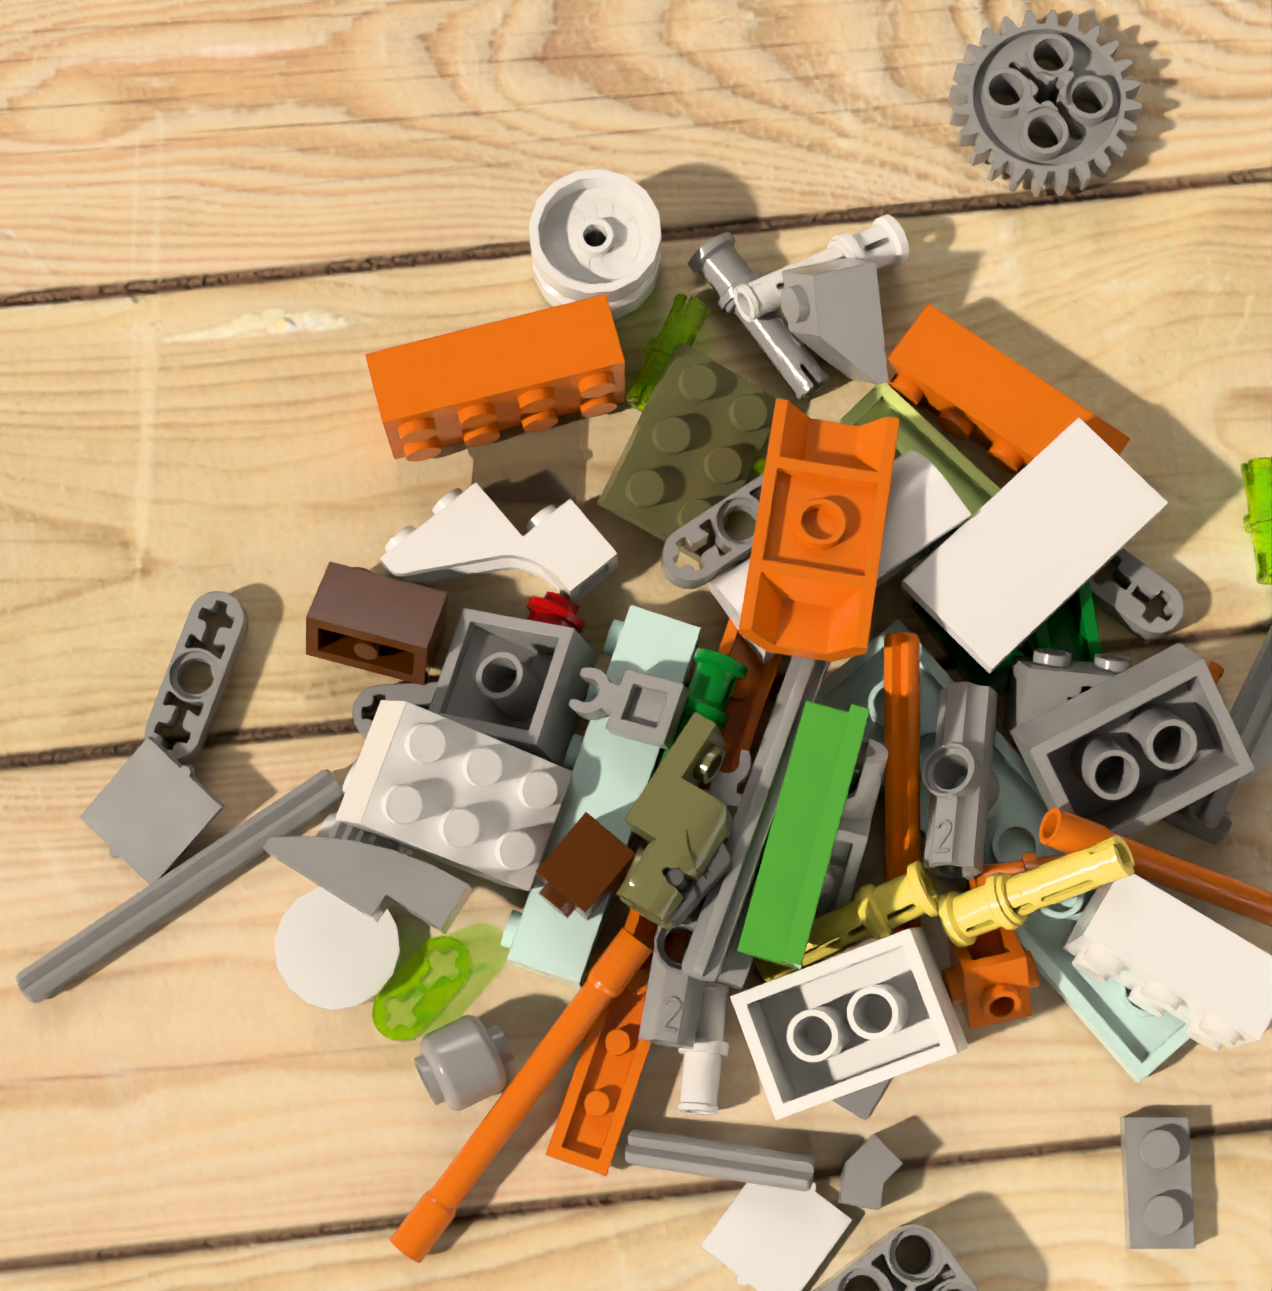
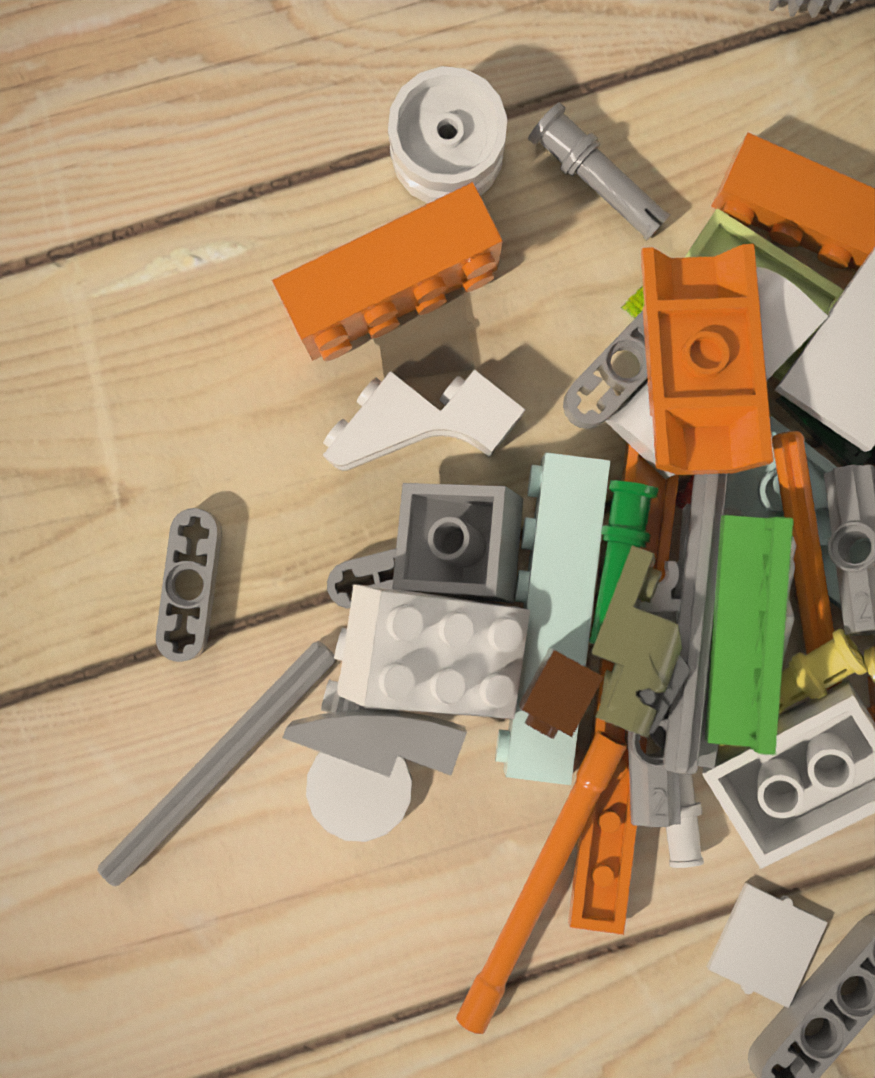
camera: 10 degrees left, 10 degrees up
(152, 811) = (178, 706): light grey piece -> none
(376, 623) = (330, 509): reddish brown brick -> none
(410, 979) = (448, 814): clear neon green beam -> none
(463, 1062) = (486, 866): light grey head -> none
(555, 610) = (479, 471): red plate -> none
(638, 709) = (577, 543): light grey plate -> none
(679, 327) = (527, 222): clear neon green pin -> none
(689, 446) = (564, 302): olive plate -> none
(719, 1159) = (713, 899): light grey axle -> none
(763, 293) = (604, 153): white pin -> none
(838, 315) = (674, 158): light grey slope -> none
(865, 1174) = (833, 886): light grey piece -> none

